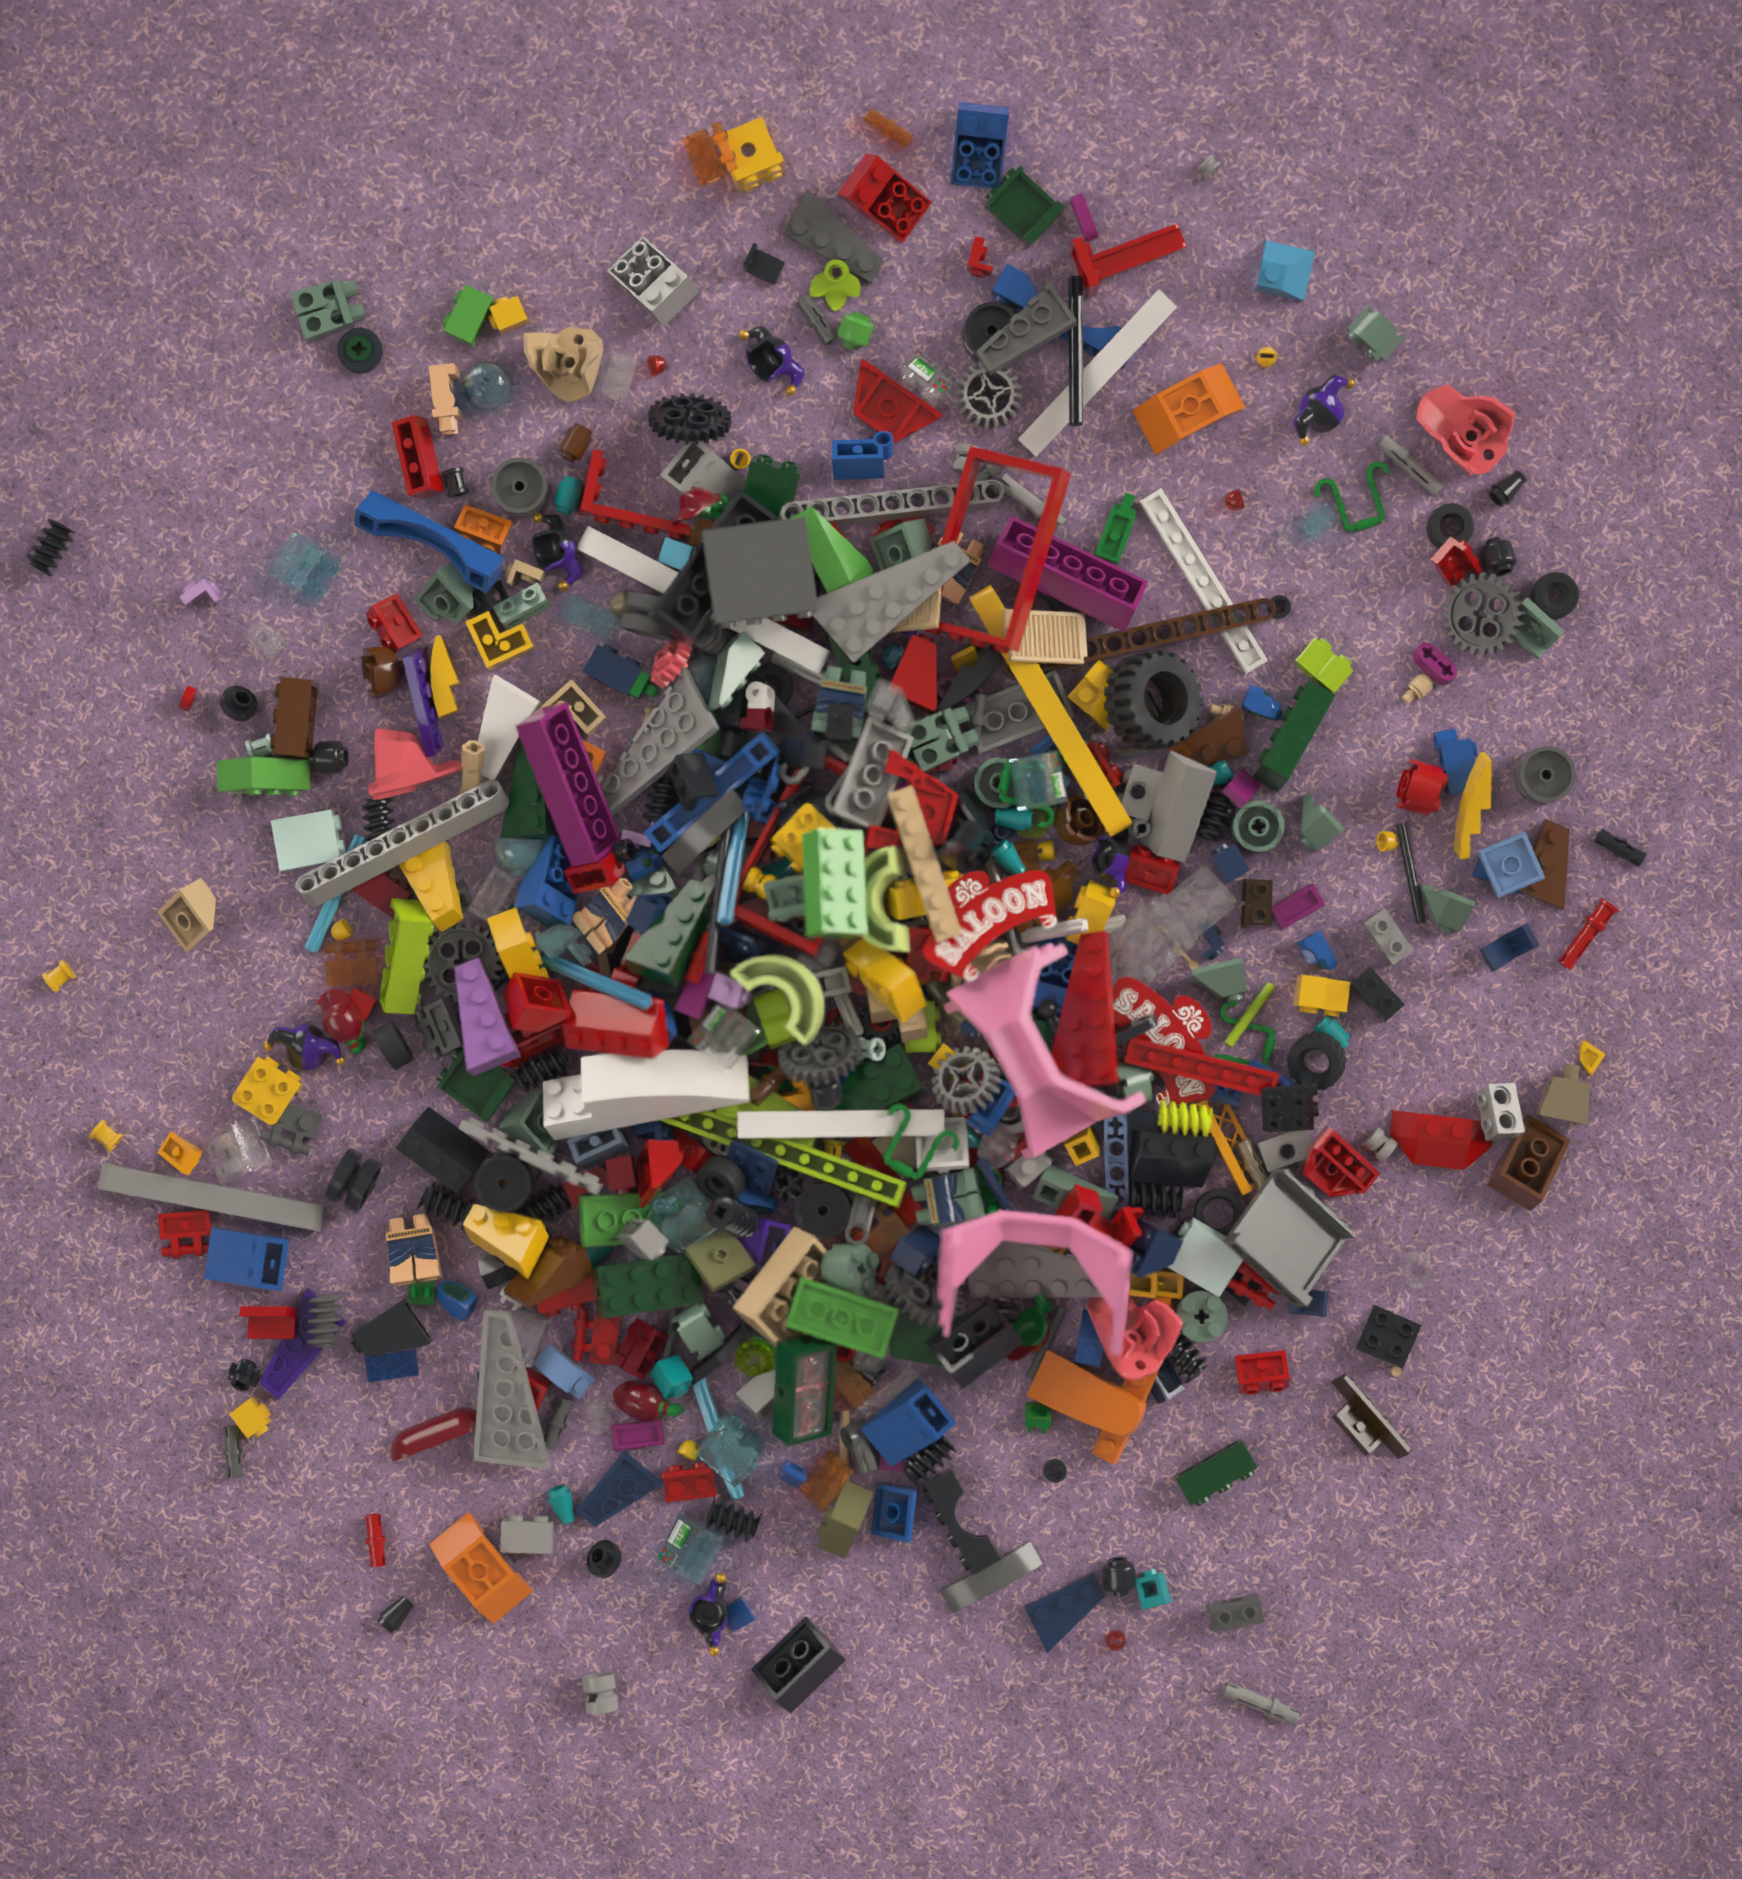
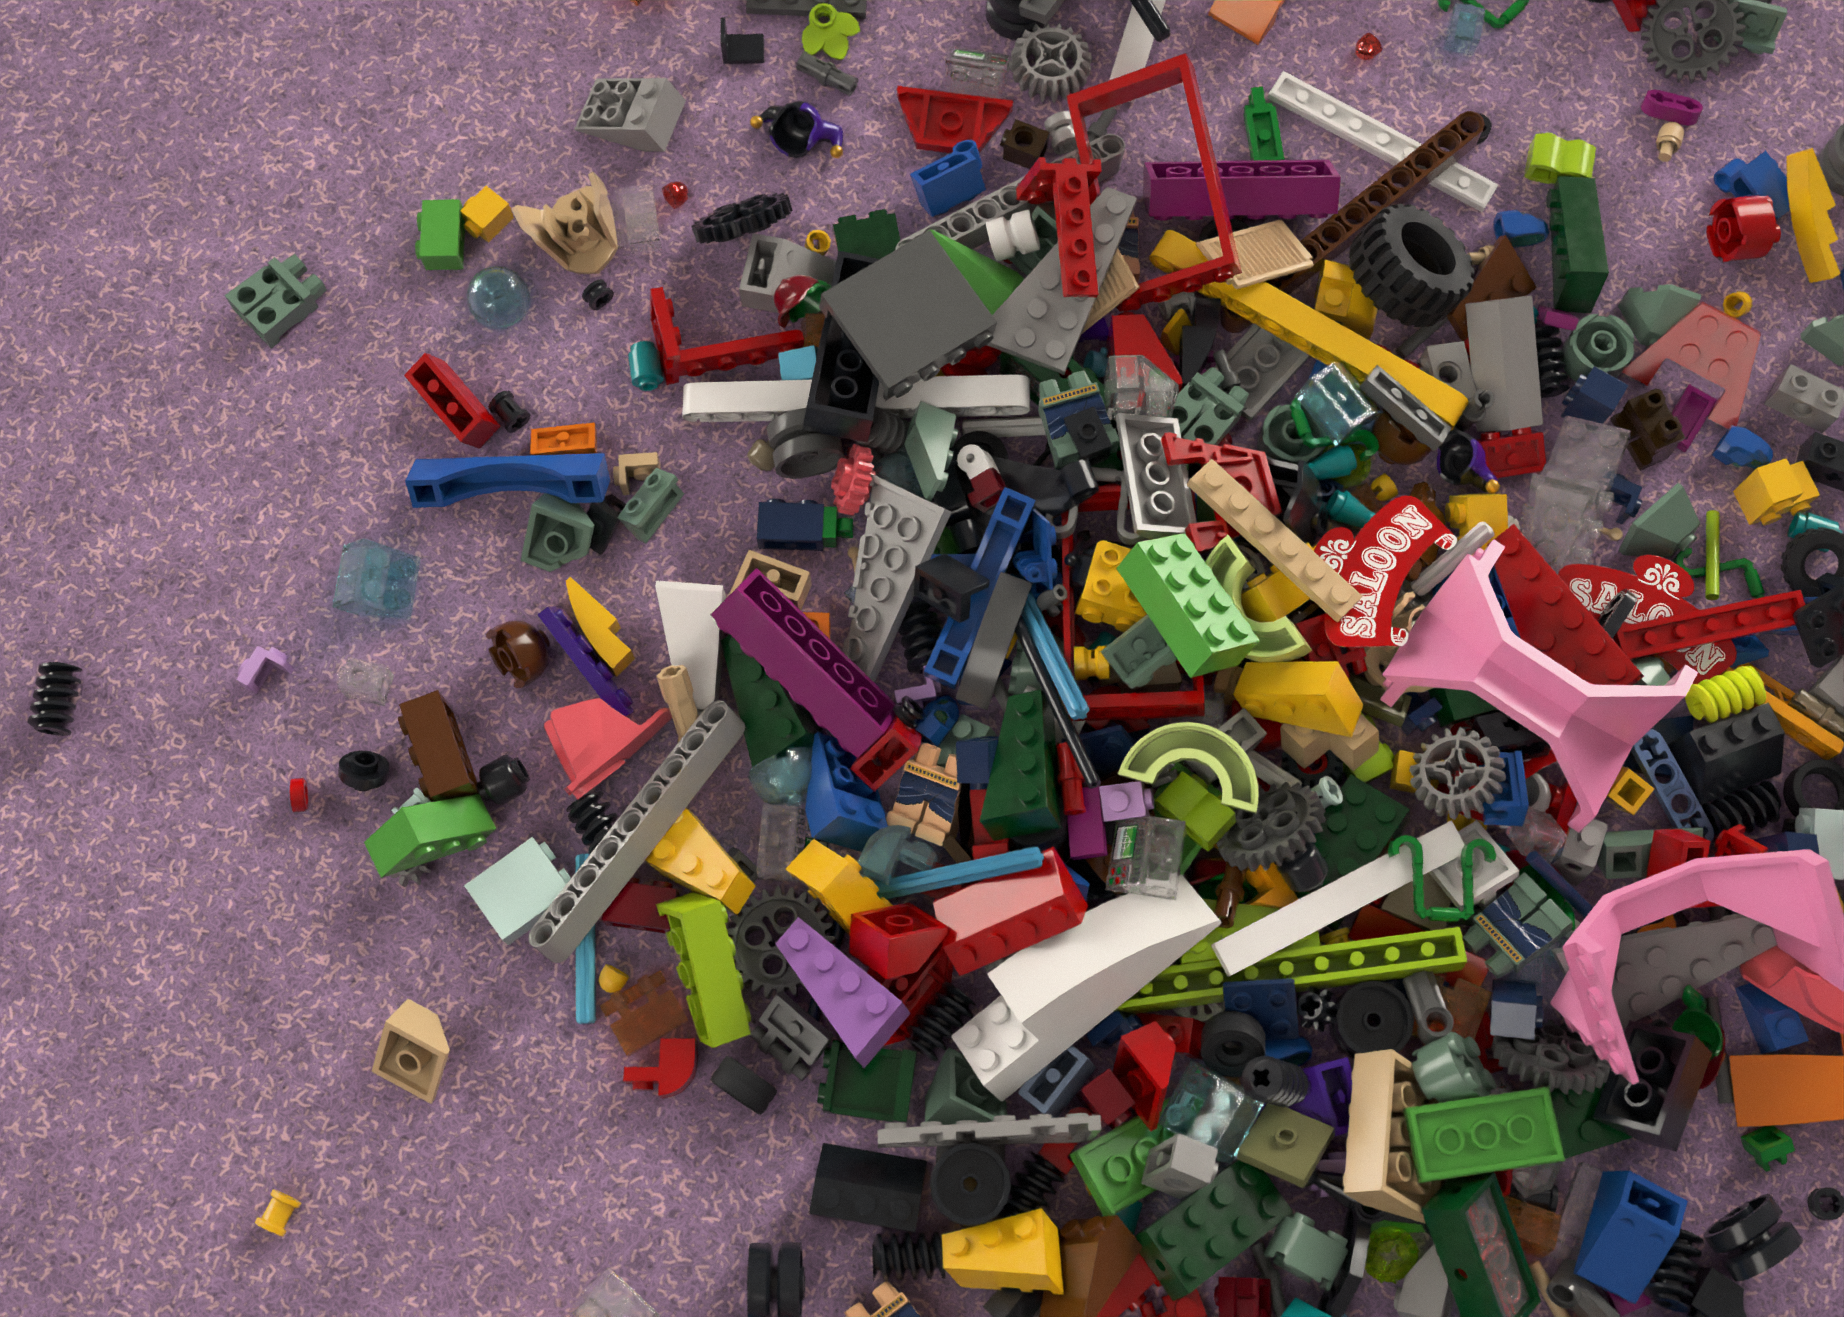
camera: 30 degrees left, 15 degrees down
(267, 1090) = (610, 1223): yellow bracket -> none
(296, 1120) = (661, 1245): dark grey plate -> none
(305, 1046) = (633, 1143): piece -> none
(343, 1020) = (665, 1083): dark red hair -> none
(359, 359) = (346, 326): black wheel -> none
(393, 623) = (508, 594): red bracket -> none
(443, 397) = (454, 323): light nougat hips -> none
(498, 648) = (642, 560): yellow brick -> none
(505, 486) = (586, 379): dark grey wheel -> none
(556, 549) = (659, 427): piece -> none
(560, 420) = (597, 294): none -> black bush
(575, 443) = (626, 308): reddish brown brick -> none
(587, 616) = (731, 482): clear light blue slope -> none
(757, 826) = (1051, 600): none -> dark grey arm
(855, 330) = (874, 62): bright green head -> none
(871, 536) = (1013, 235): none -> white wheel
(911, 558) = (1068, 189): none -> red bracket
(939, 463) = (1024, 133): none -> dark brown brick
(987, 1462) = (1753, 1238): none -> black wheel
(1027, 499) = (1160, 146): light grey pin -> none
(1080, 808) = (1405, 408): none -> dark grey plate
(1334, 870) = (1711, 347): none -> wing
(1410, 872) = (1784, 327): black bar -> none

